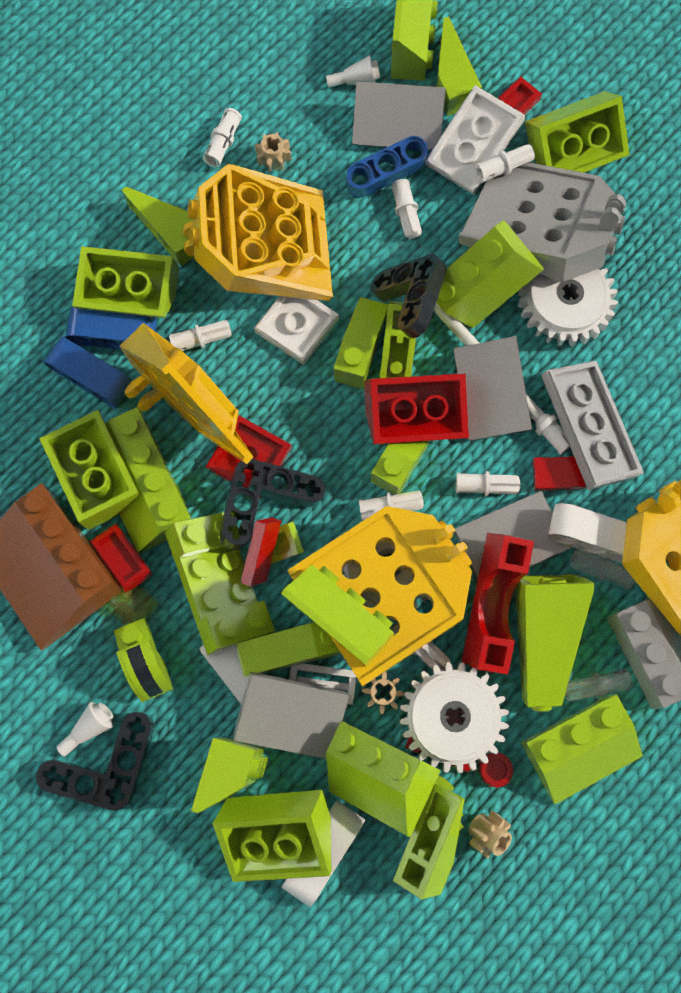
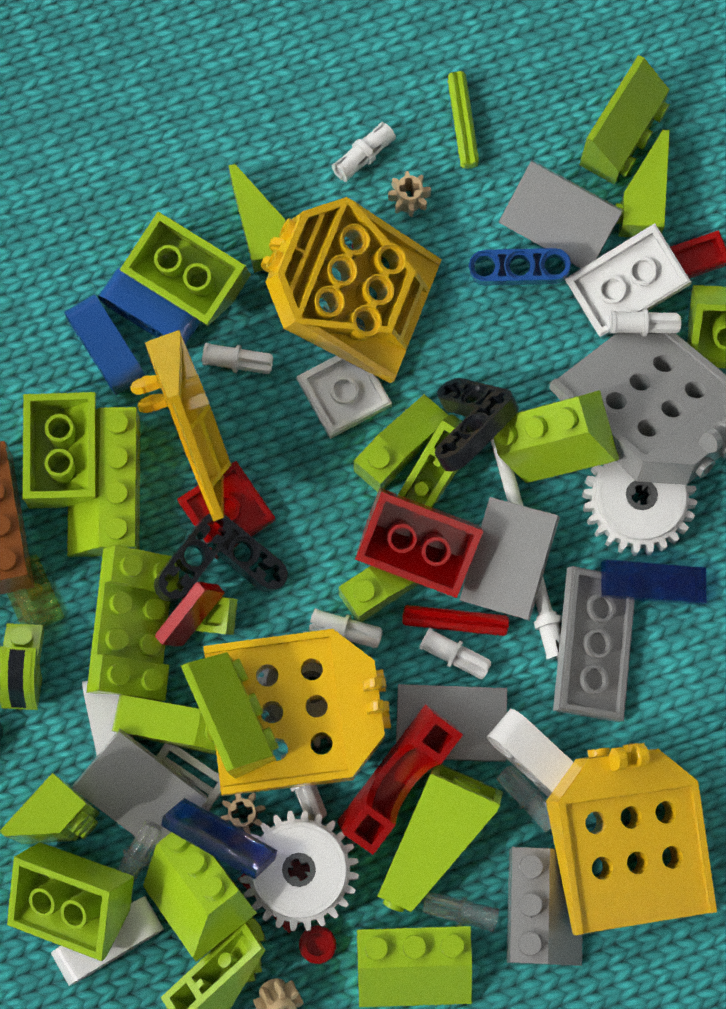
camera: 20 degrees right, 0 degrees up
(121, 558) = (47, 553): red tile -> none
(286, 82) = (463, 120): none -> lime axle
(313, 768) = (138, 853): none -> clear axle
(362, 71) = (549, 147): white cone -> none
(378, 723) = (219, 838): none -> clear blue tile
(406, 208) = (520, 321): white axle -> none
(473, 457) = (455, 620): none -> red axle
(557, 474) = (532, 678): red tile -> none
(612, 355) = (653, 582): none -> clear blue tile

